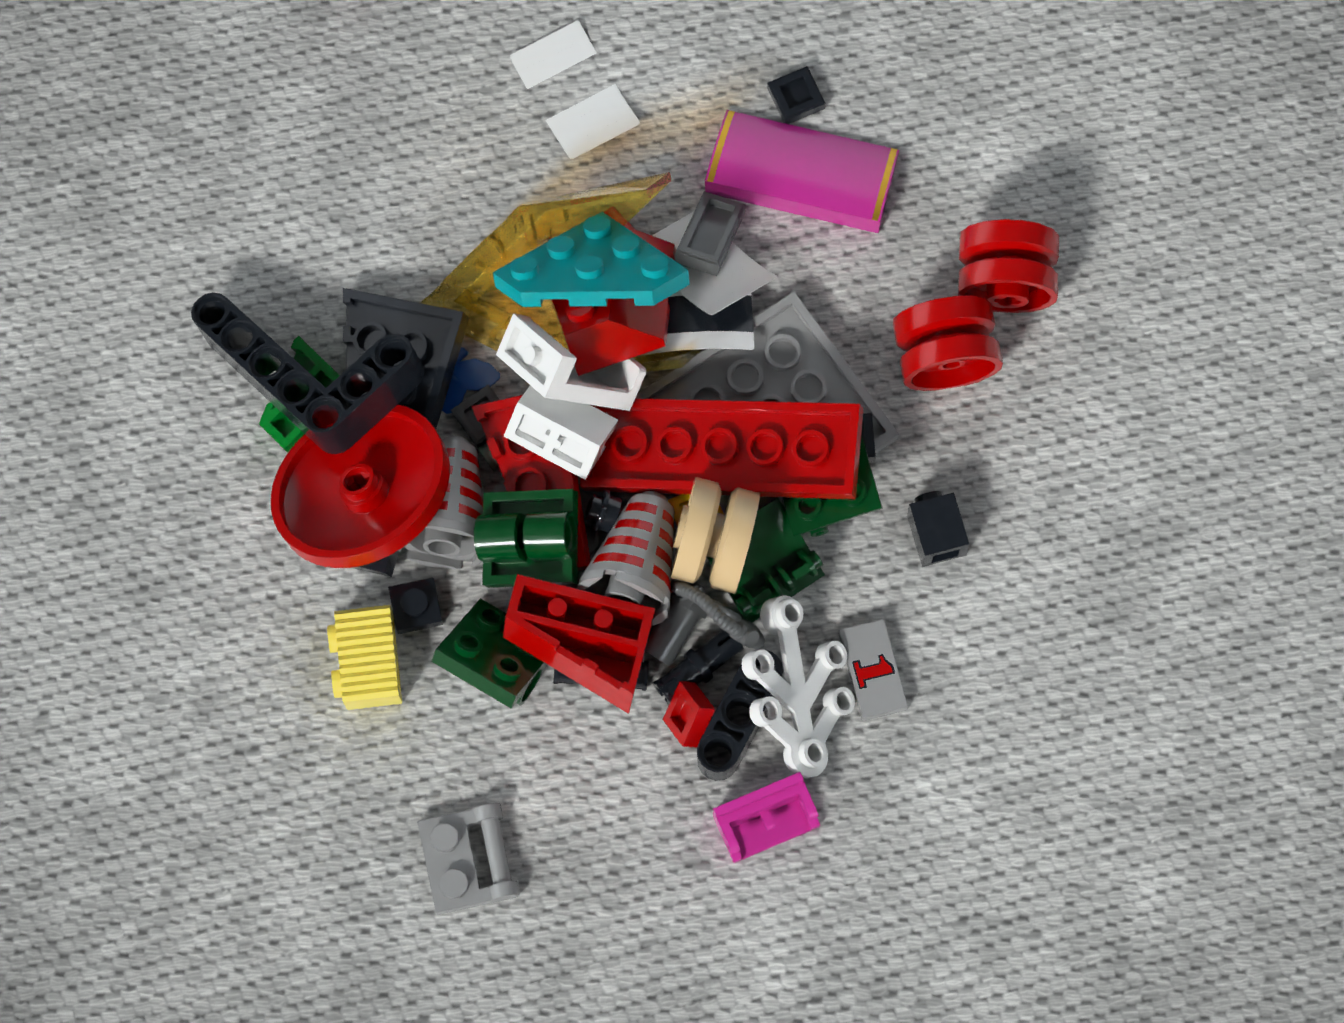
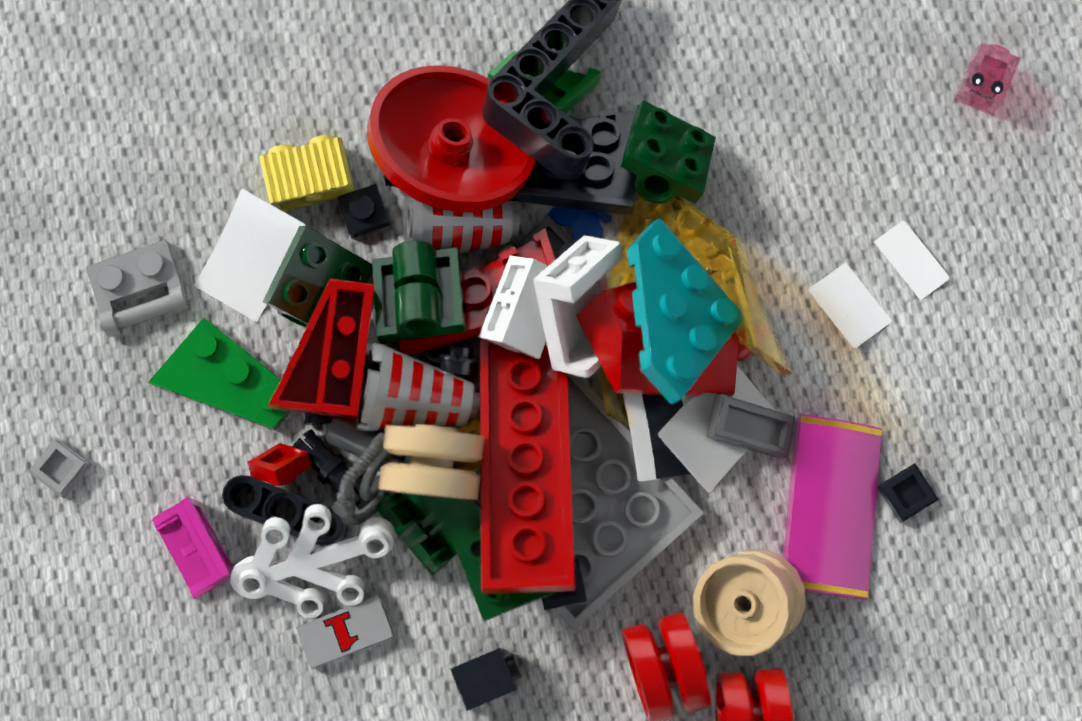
camera: 80 degrees right, 5 degrees up
(411, 271) = (667, 155): none -> dark green plate
(449, 730) = (248, 255): none -> white sticker
(580, 772) = (221, 375): none -> green wing
(658, 960) = (60, 467): none -> light grey tile
(863, 251) = (754, 623): none -> tan wheel

